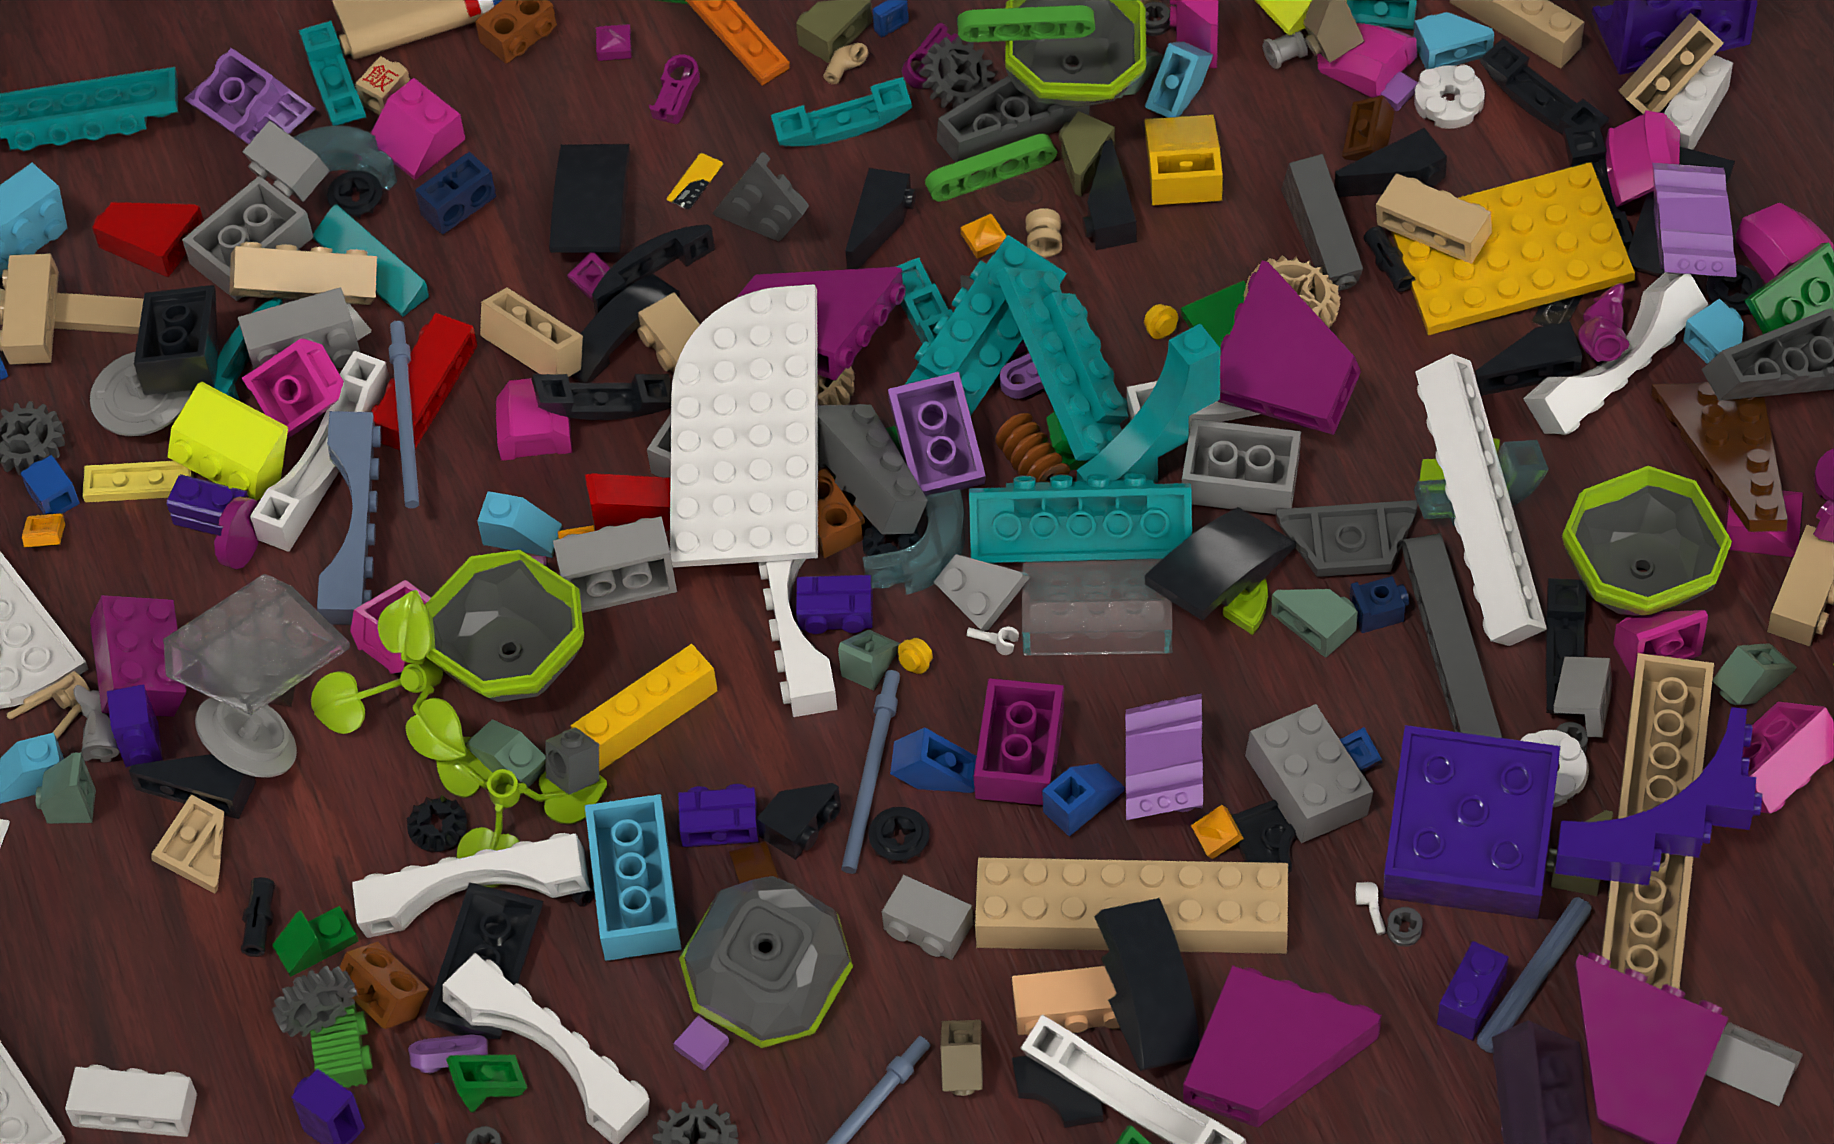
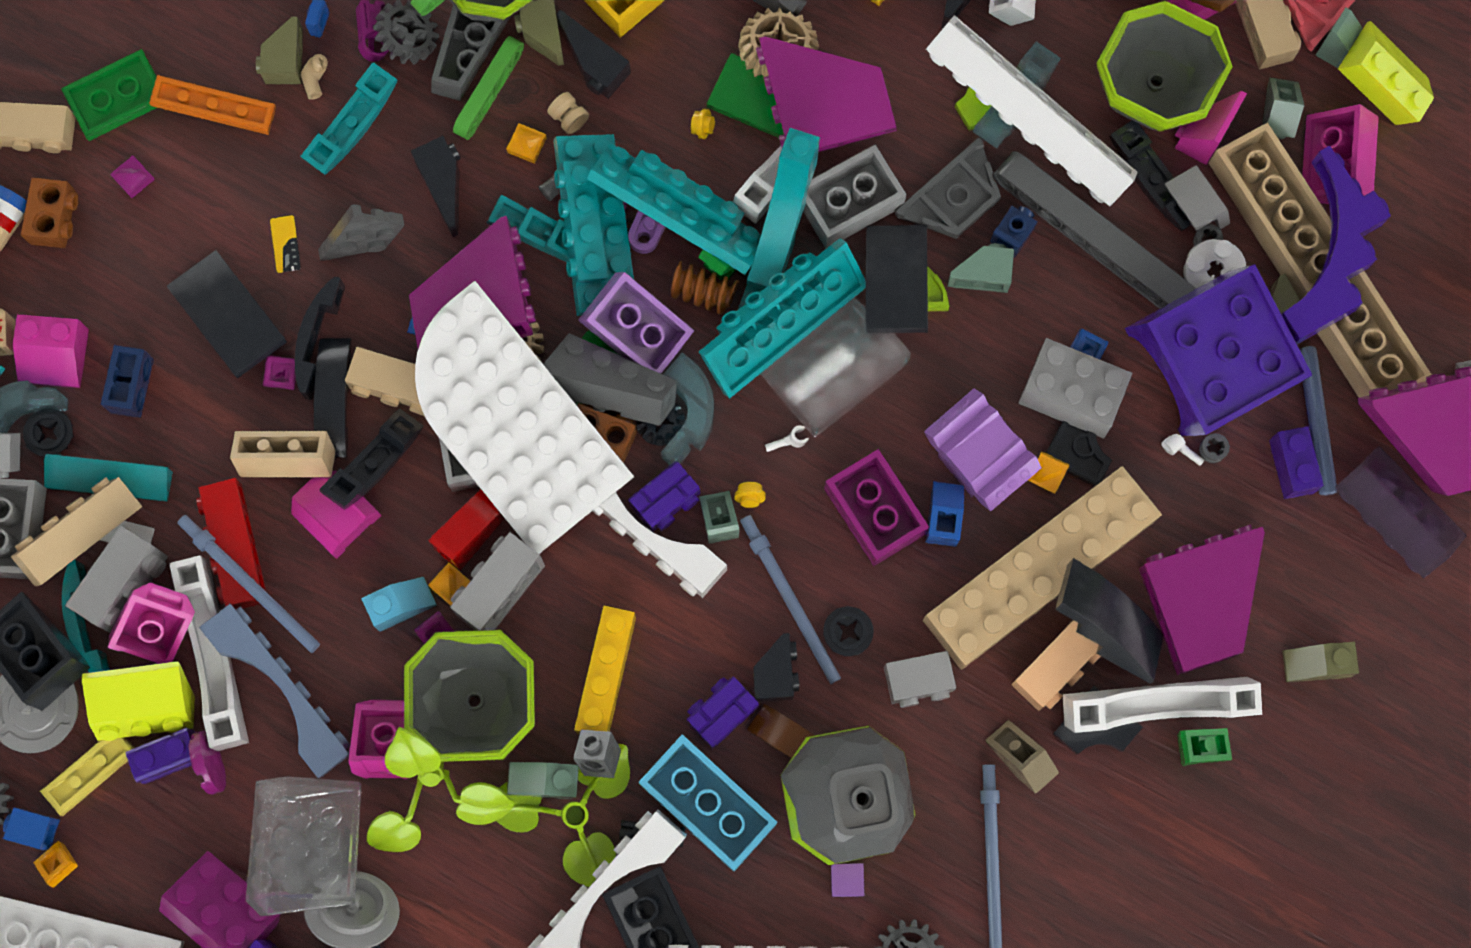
camera: 45 degrees left, 20 degrees up
(426, 835) = (539, 878): black gear -> none
(675, 93) = (213, 186): magenta piece -> none
(933, 763) = (830, 564): blue slope -> none
(980, 588) = (752, 414): light grey wing -> none

